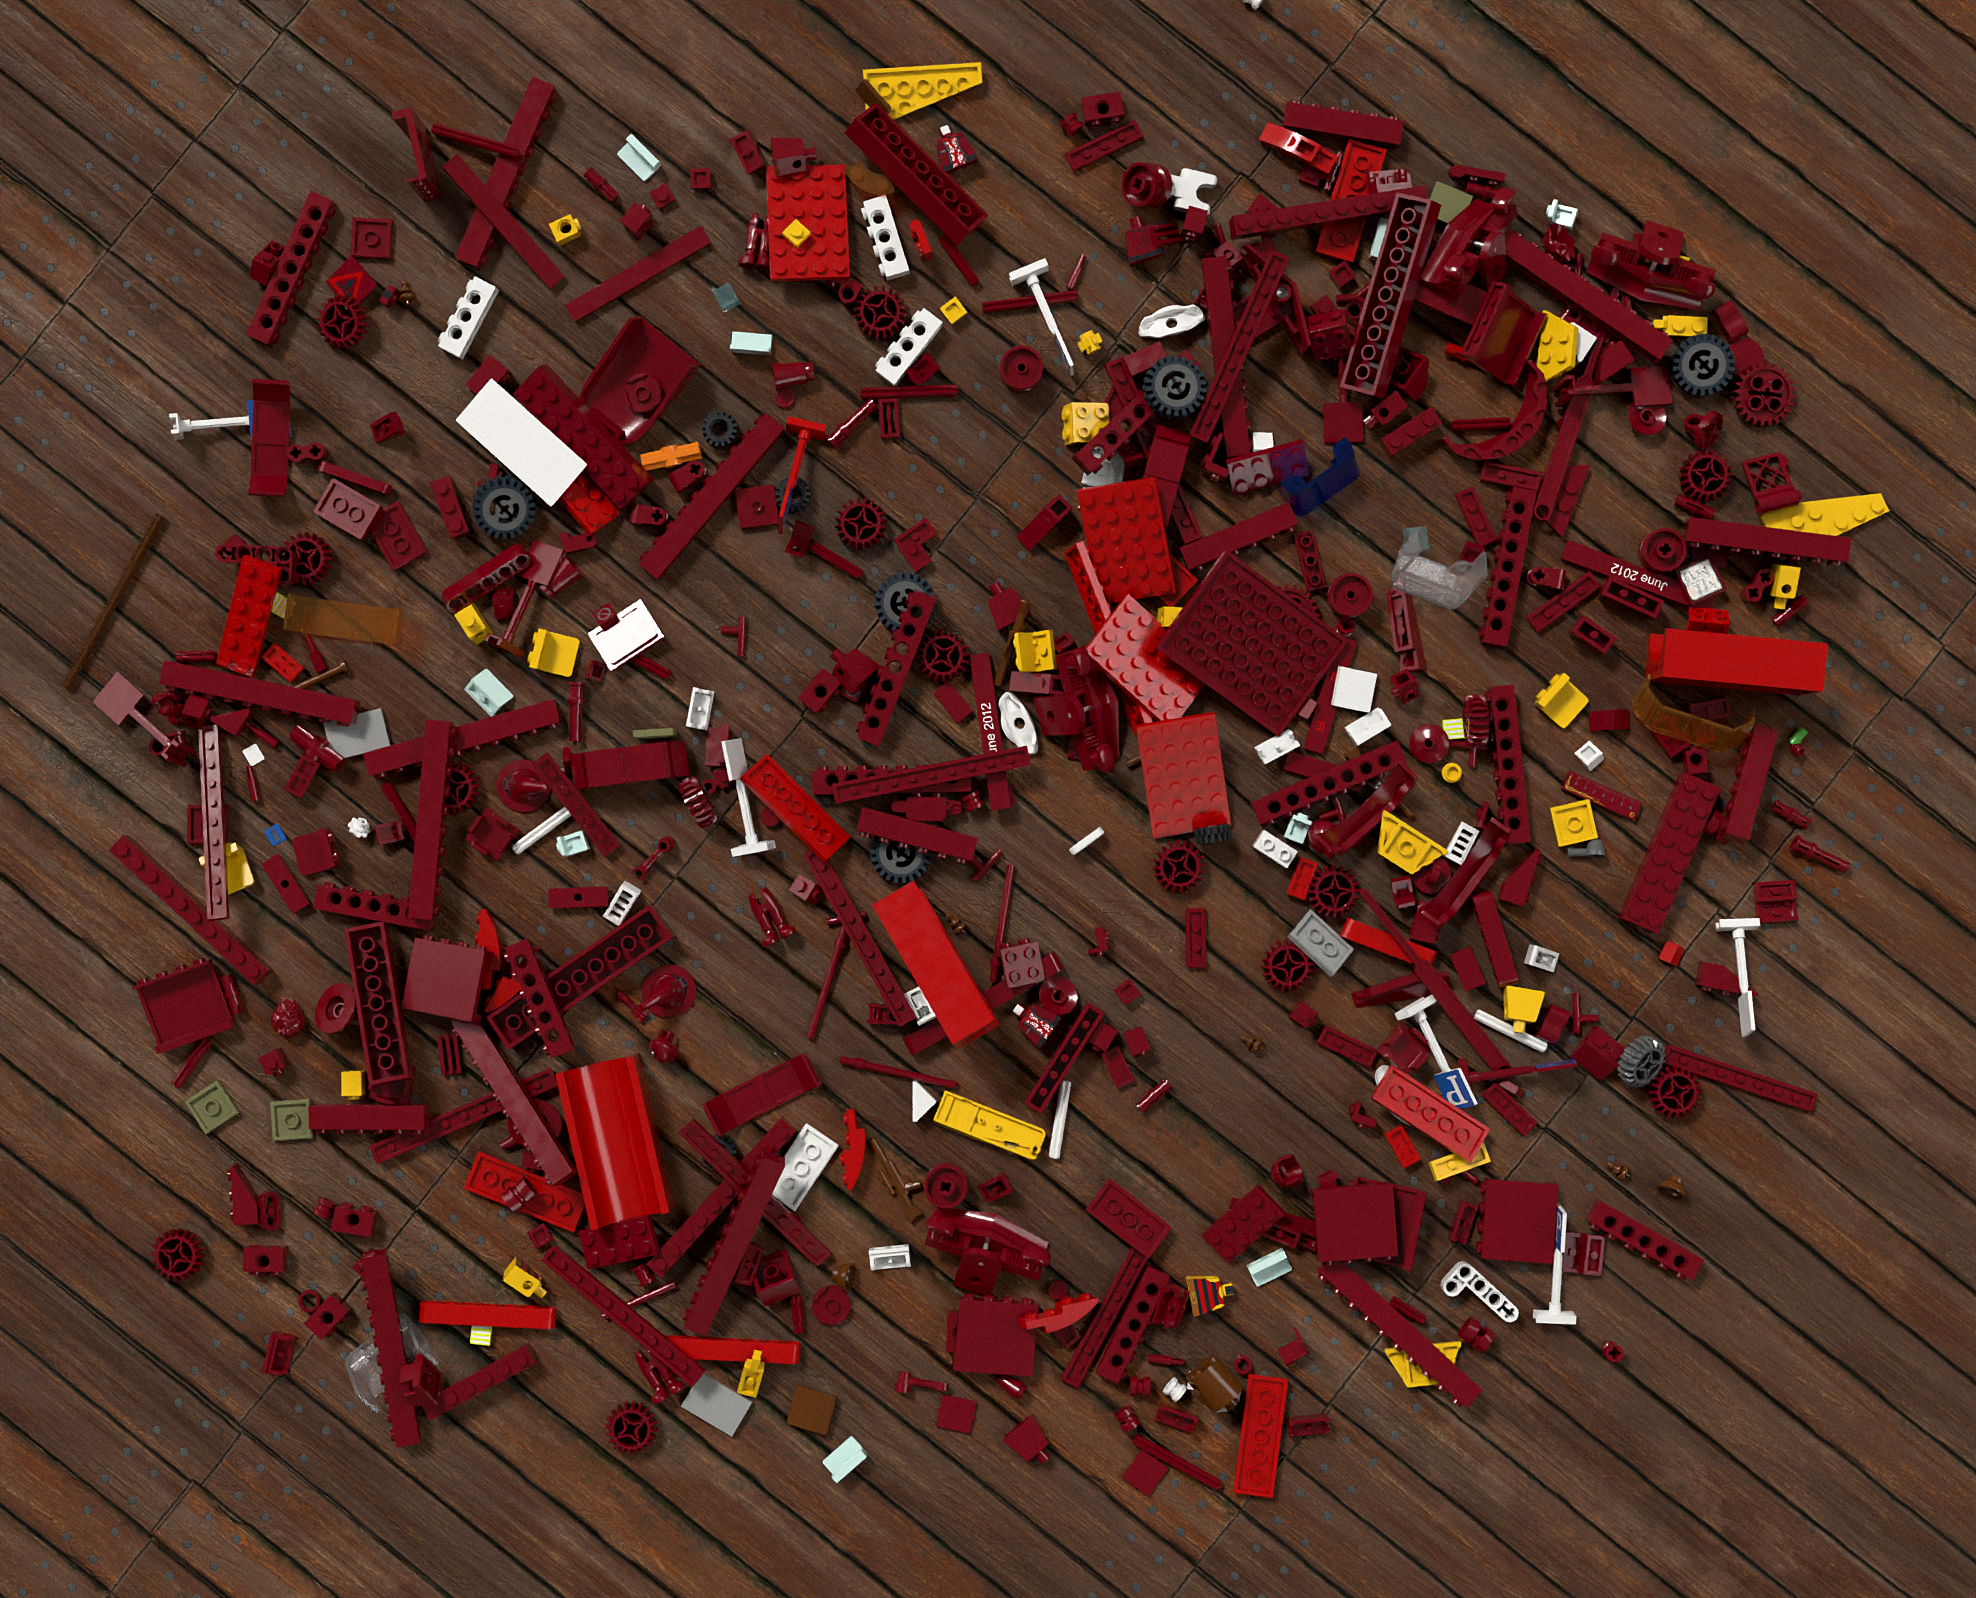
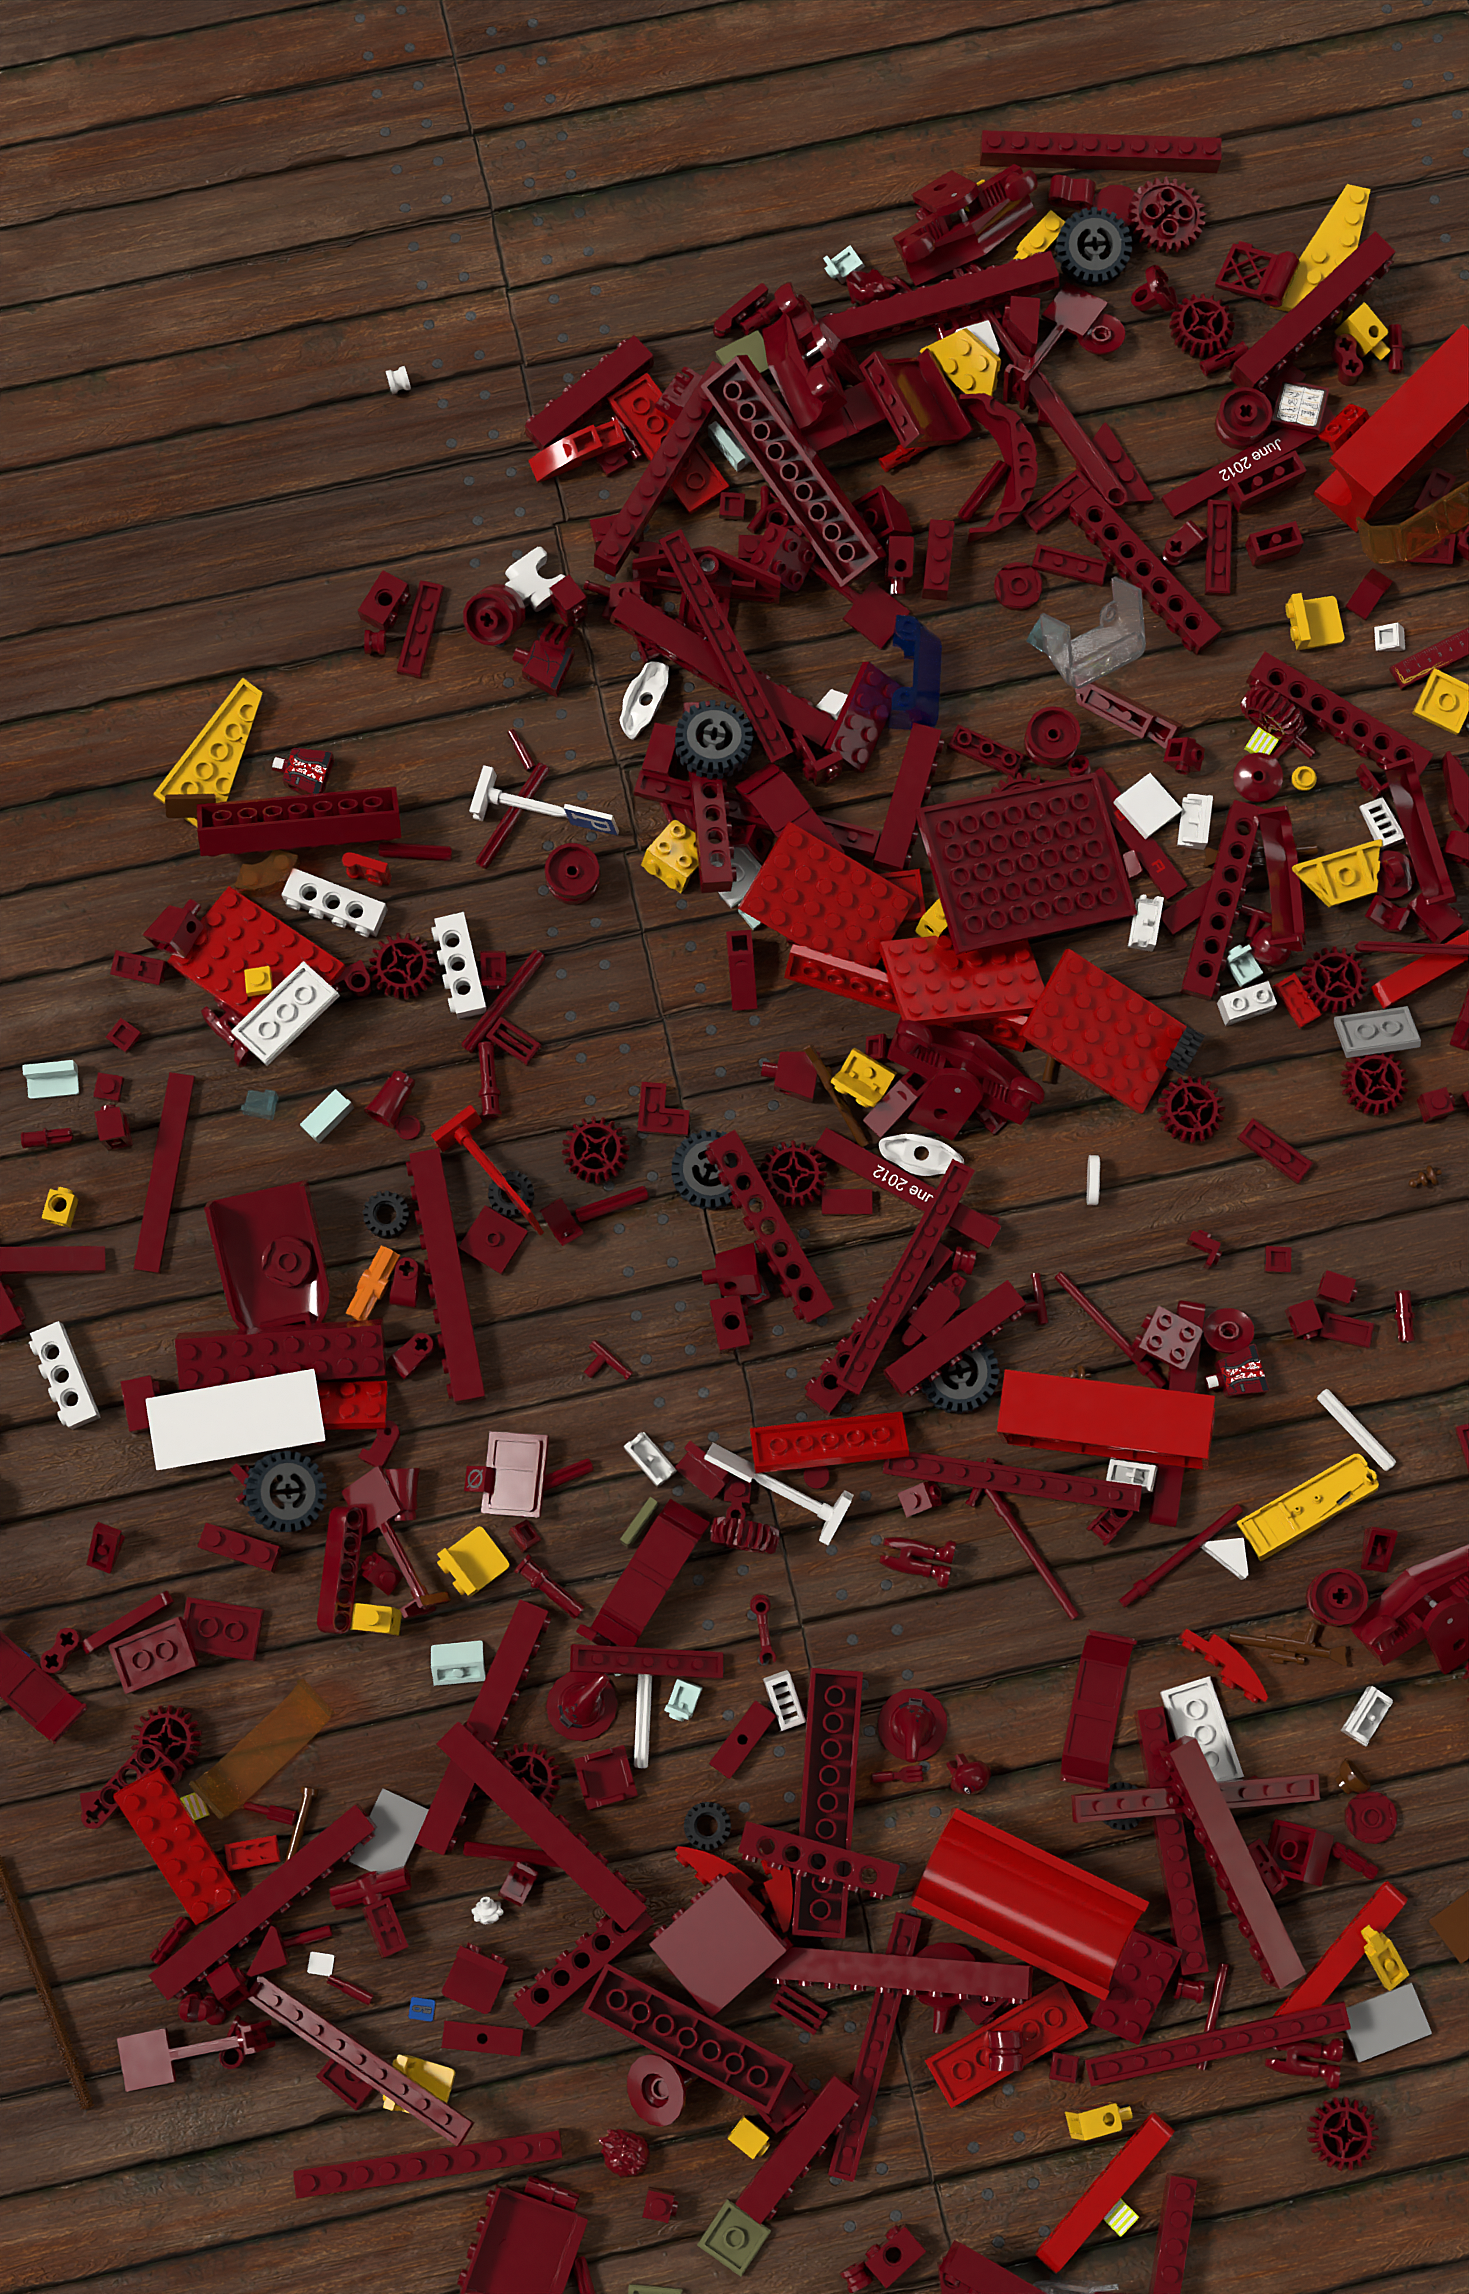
camera: 55 degrees left, 10 degrees down
(499, 916) = (718, 1837): none -> black tyre
(788, 266) = (285, 1013): none -> white tile
(953, 310) = (460, 895): yellow plate -> none
(1064, 1057) = (1297, 1373): dark red brick -> none
(1089, 342) = (600, 789): yellow gear -> none
(1434, 496) = (1017, 586): none -> dark red tile
(1471, 552) = (1101, 593): dark red plate -> none
(1773, 317) = (1100, 151): none -> dark red brick

